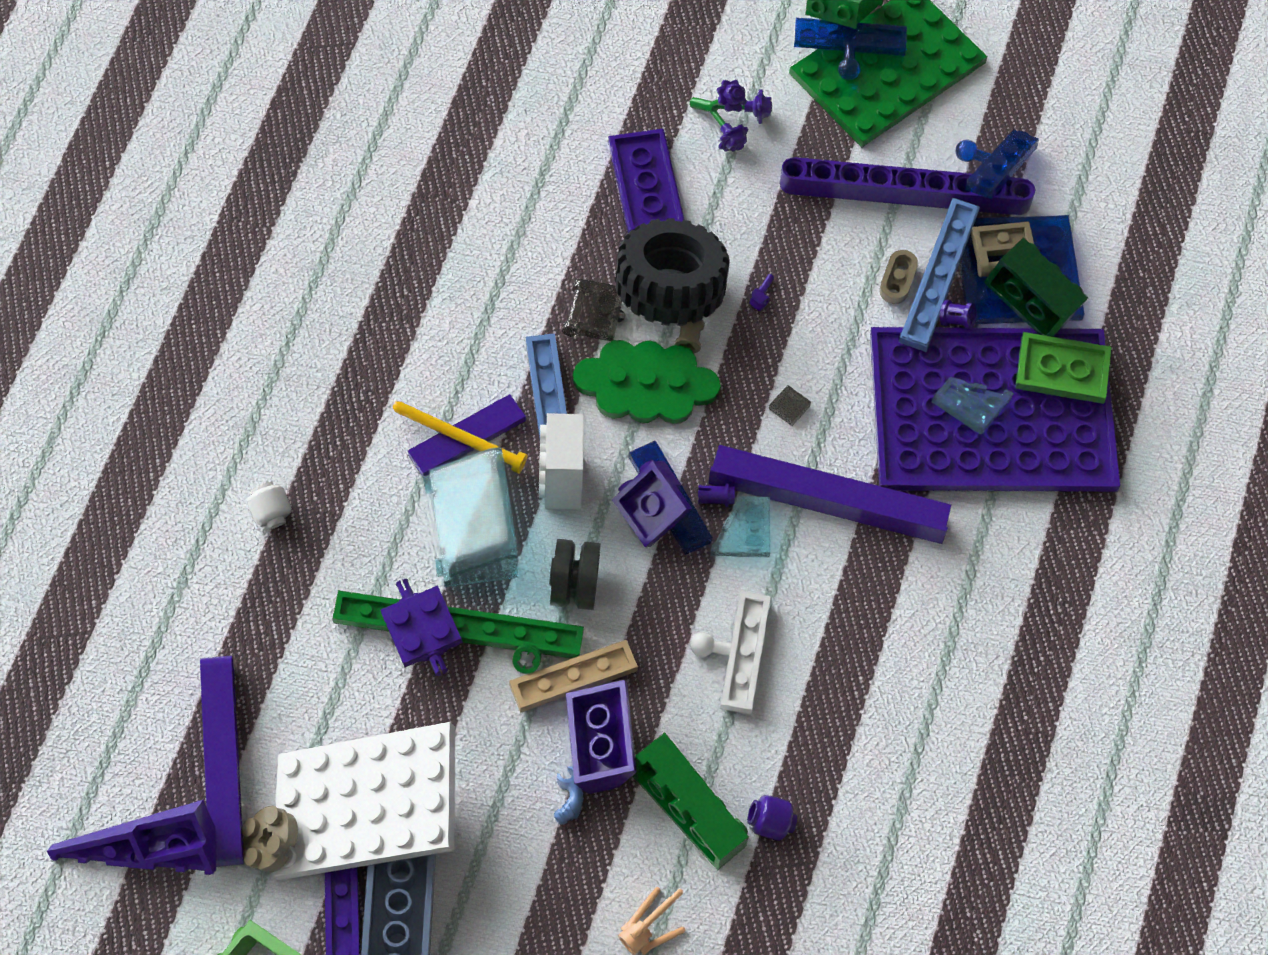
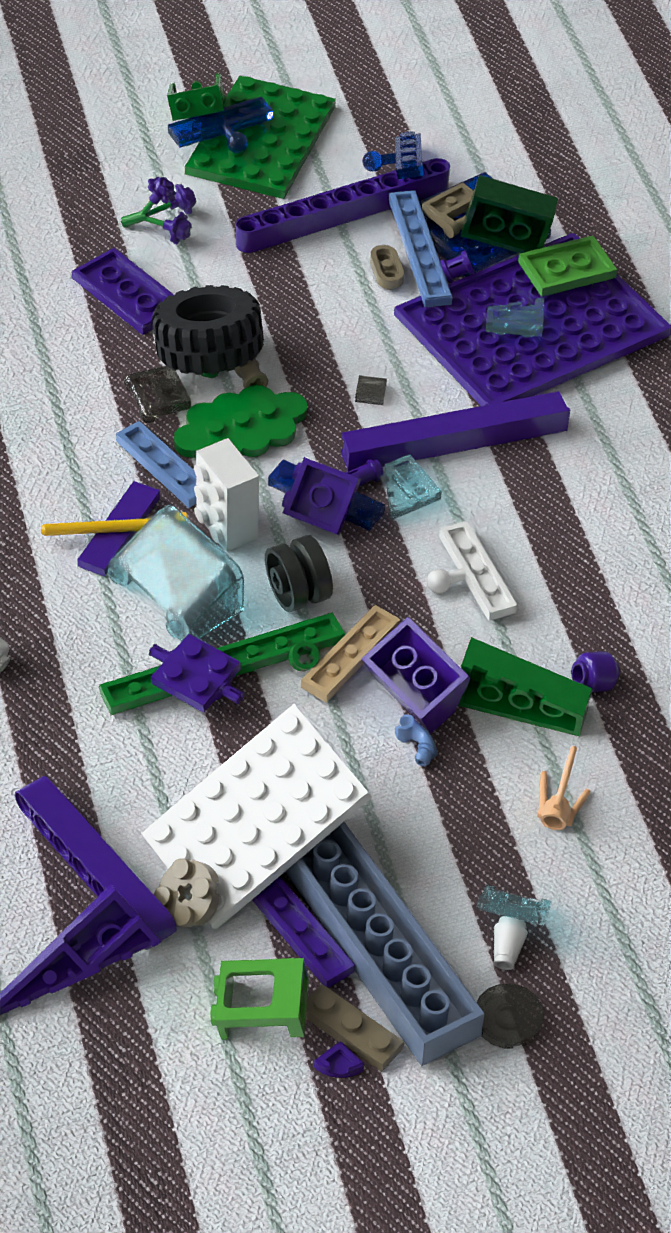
camera: 30 degrees left, 15 degrees down
(759, 298) = (287, 329): dark purple hand -> none

